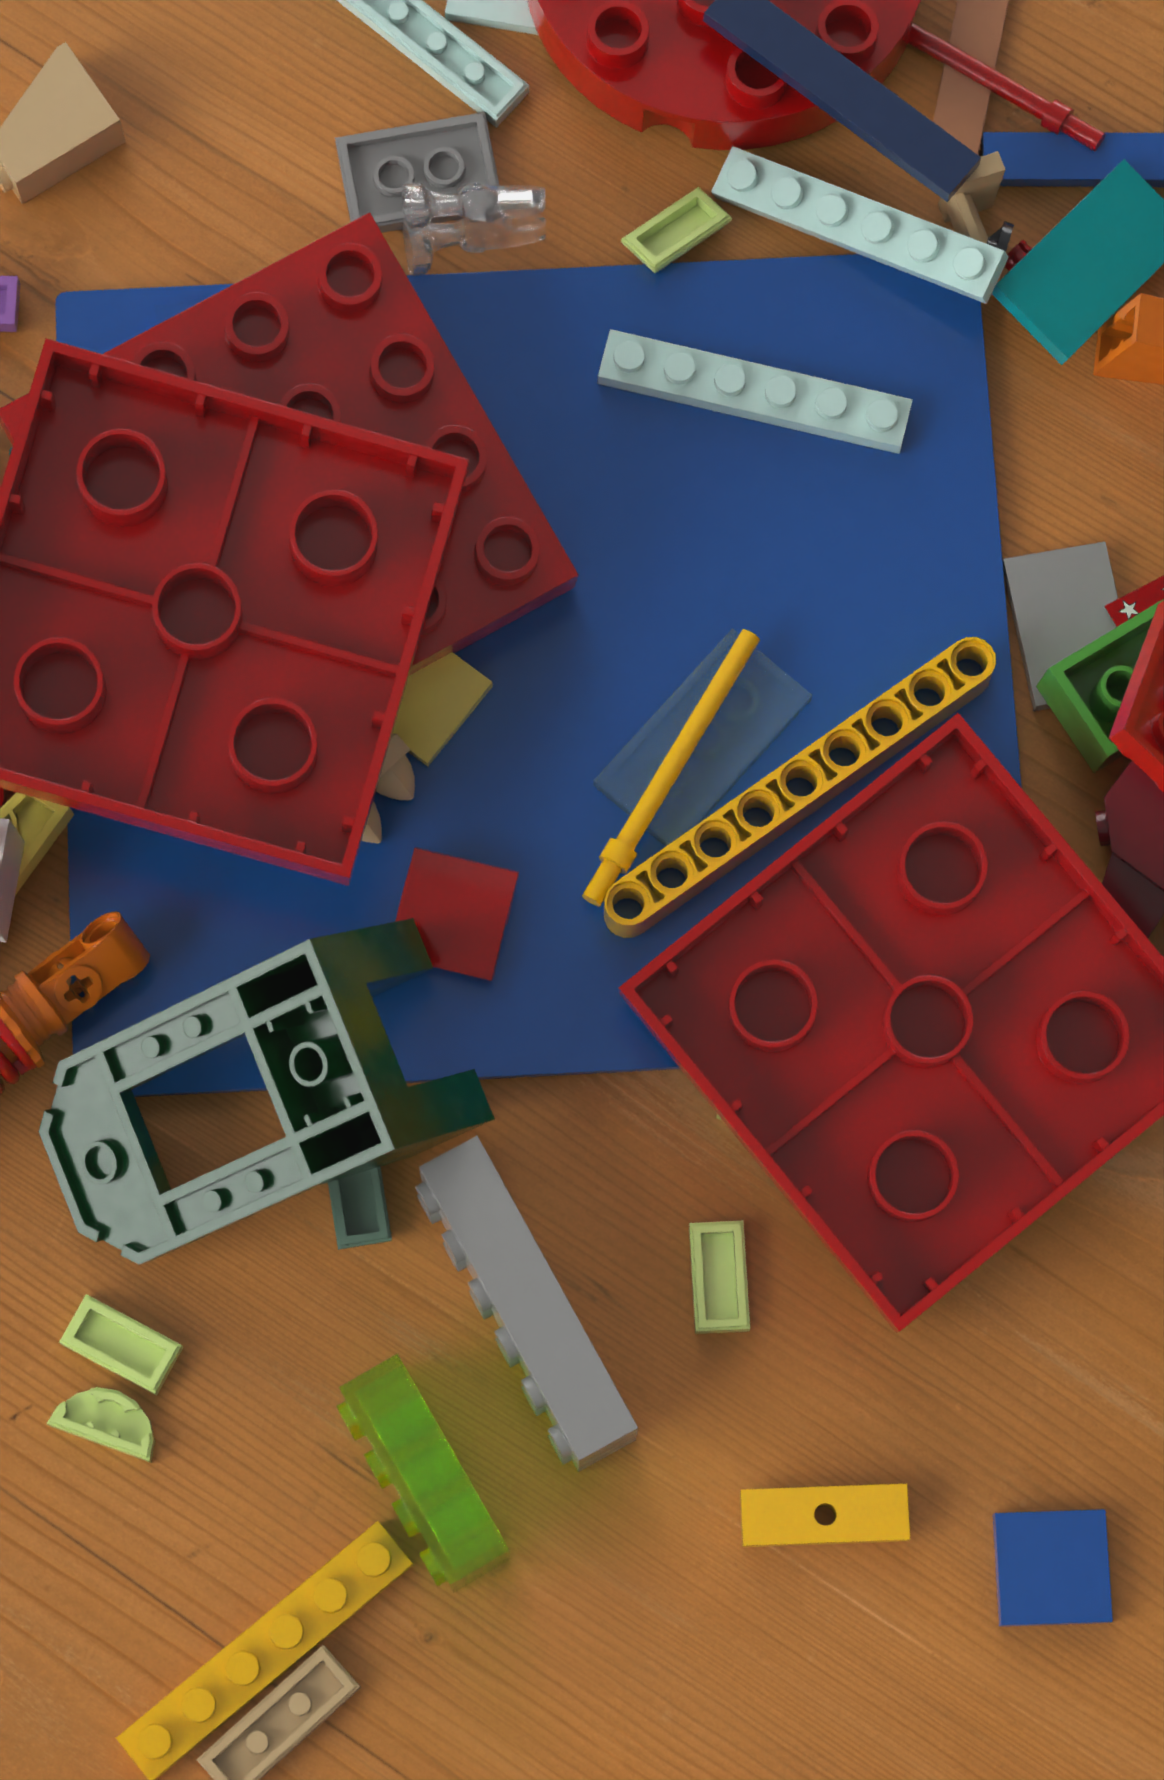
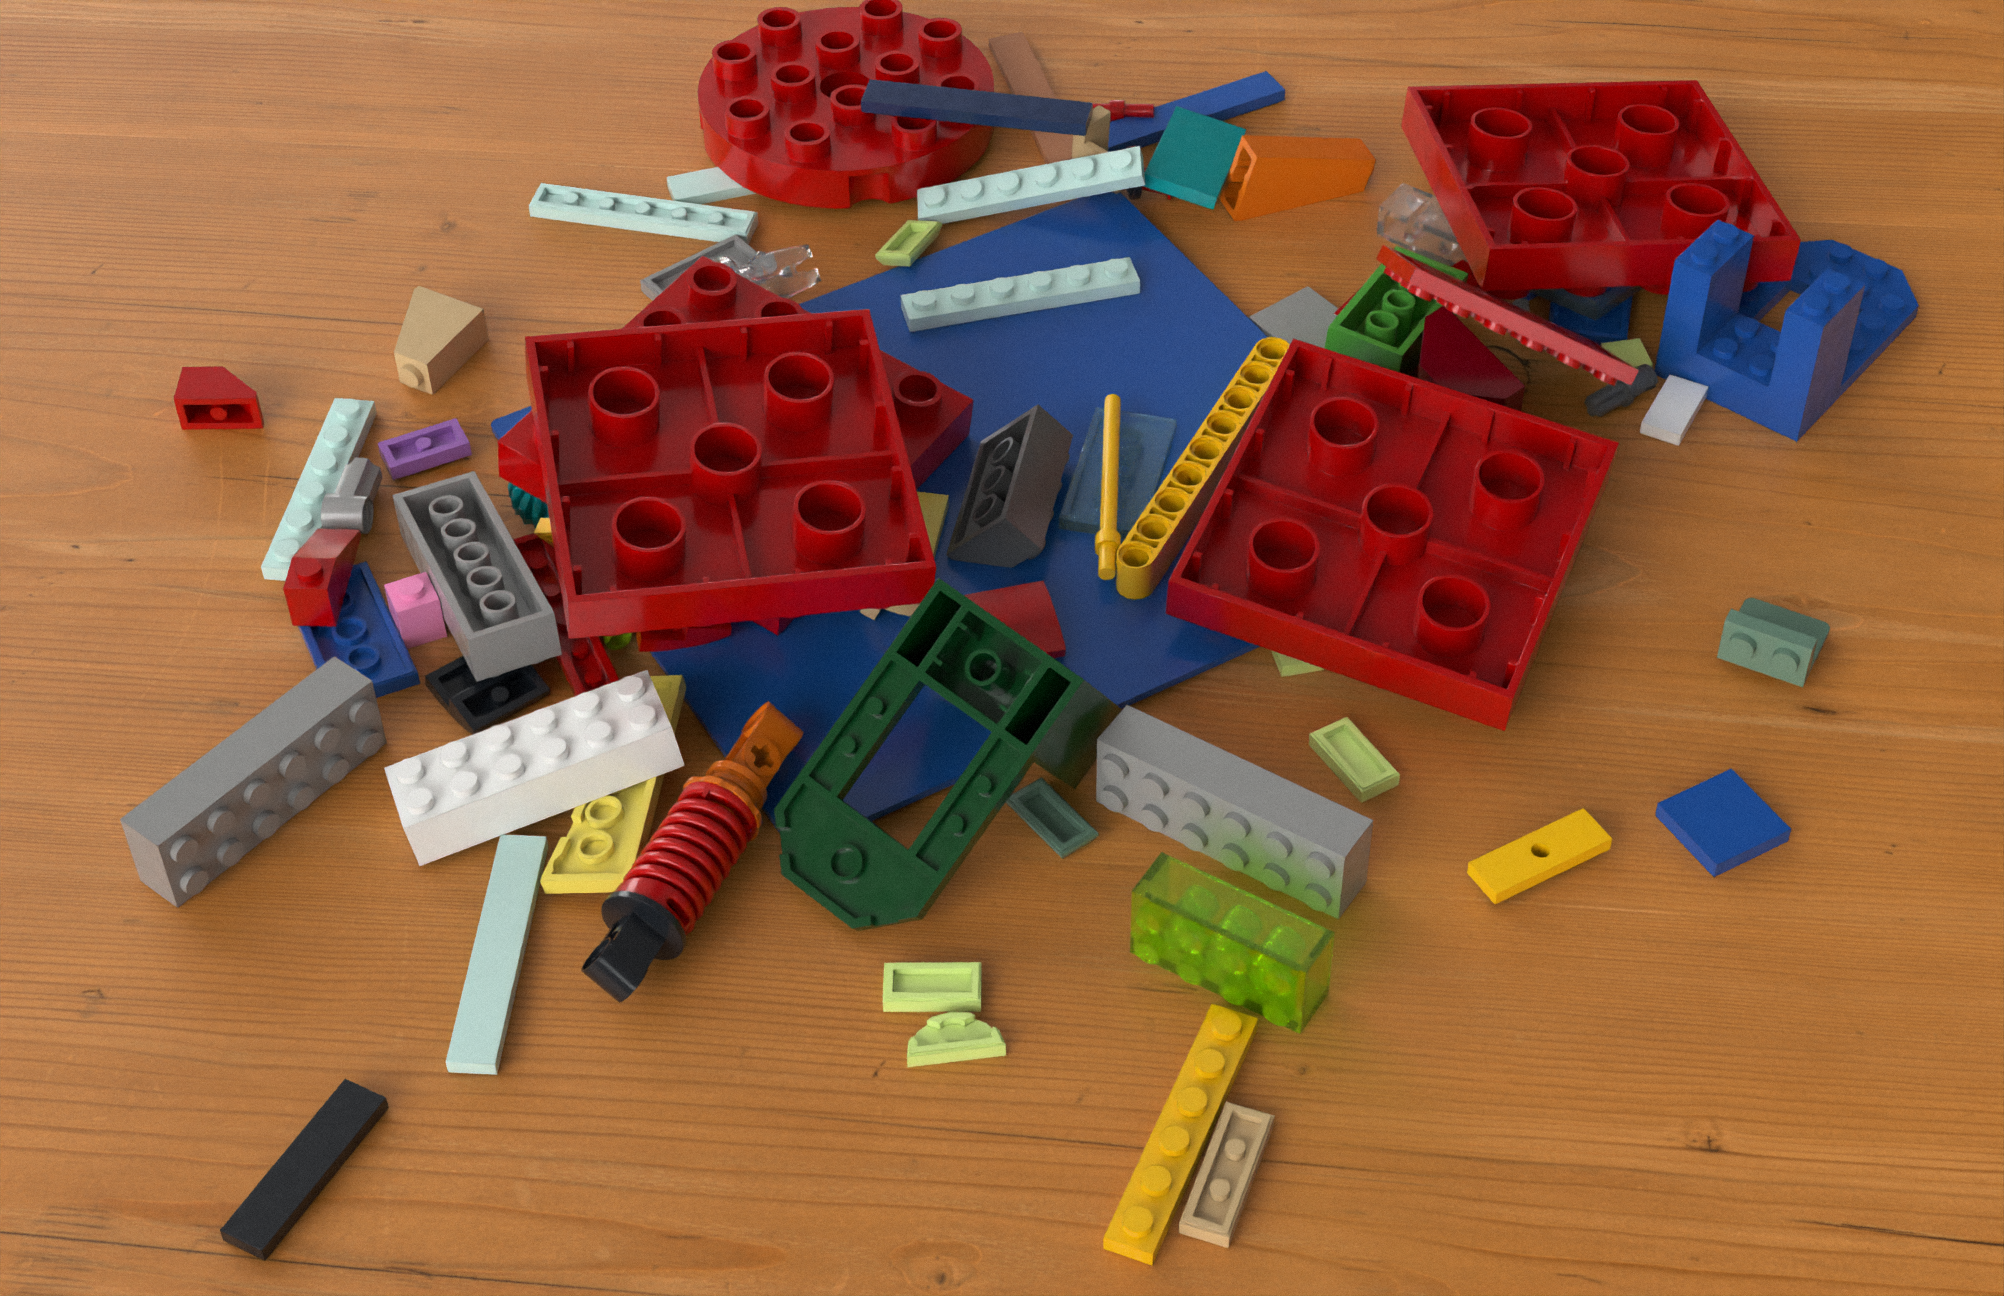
camera: 25 degrees left, 30 degrees down
(560, 718) = (1012, 492): none -> dark grey slope

